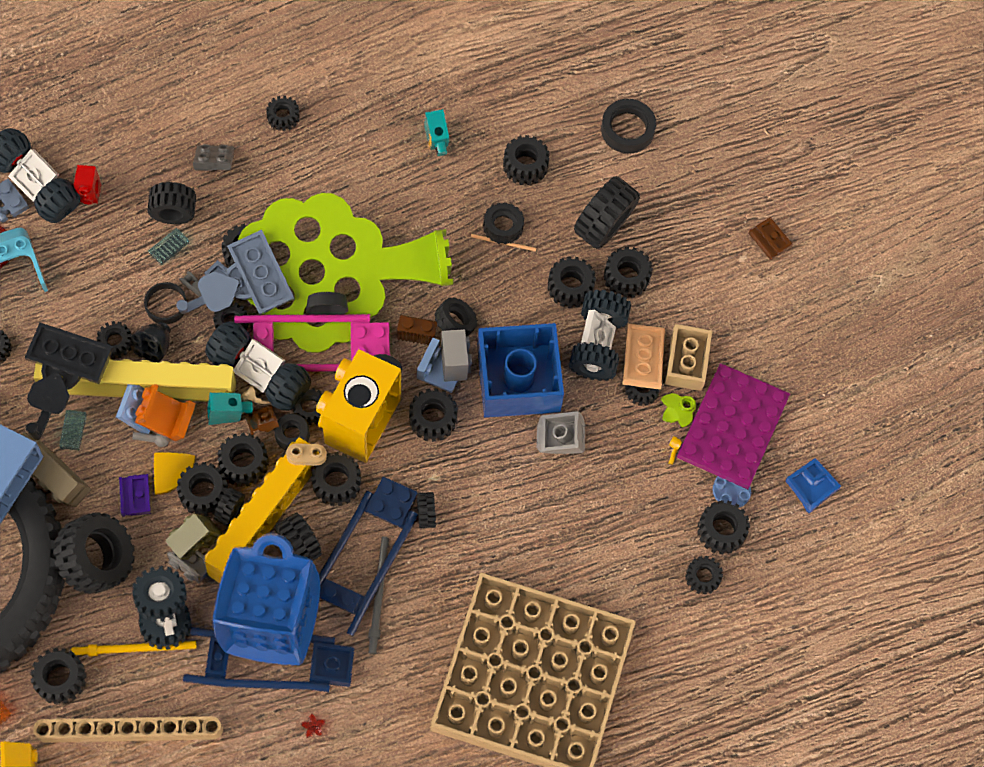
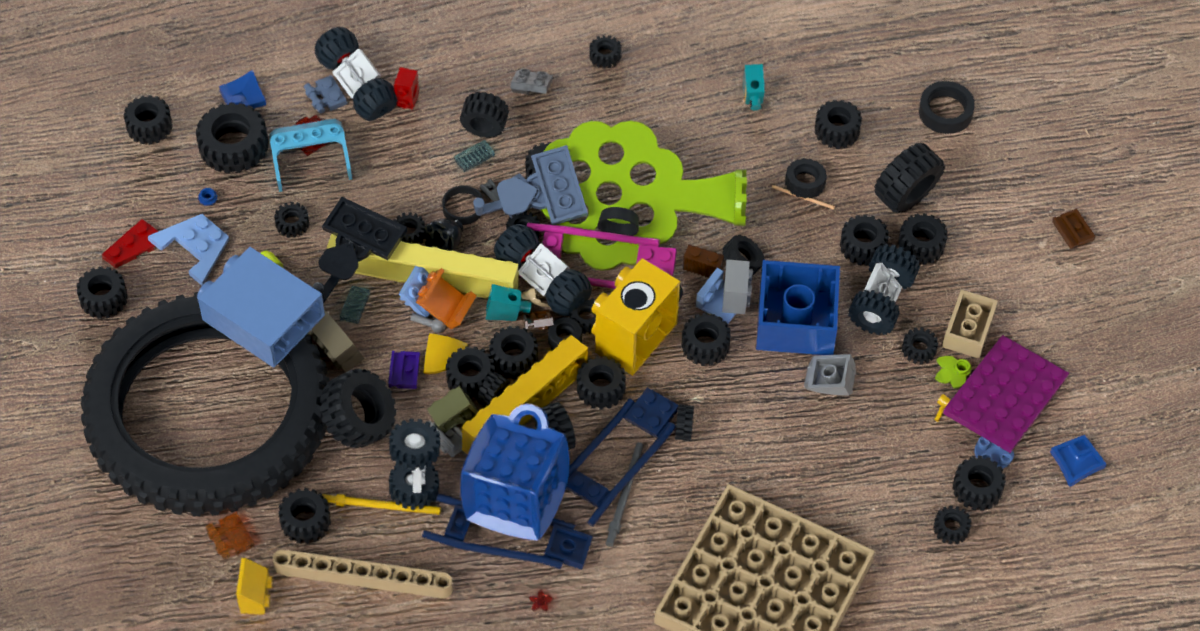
camera: 15 degrees right, 10 degrees down
(306, 454) = (575, 350): tan plate -> none
(644, 356) = (925, 316): light nougat tile -> none

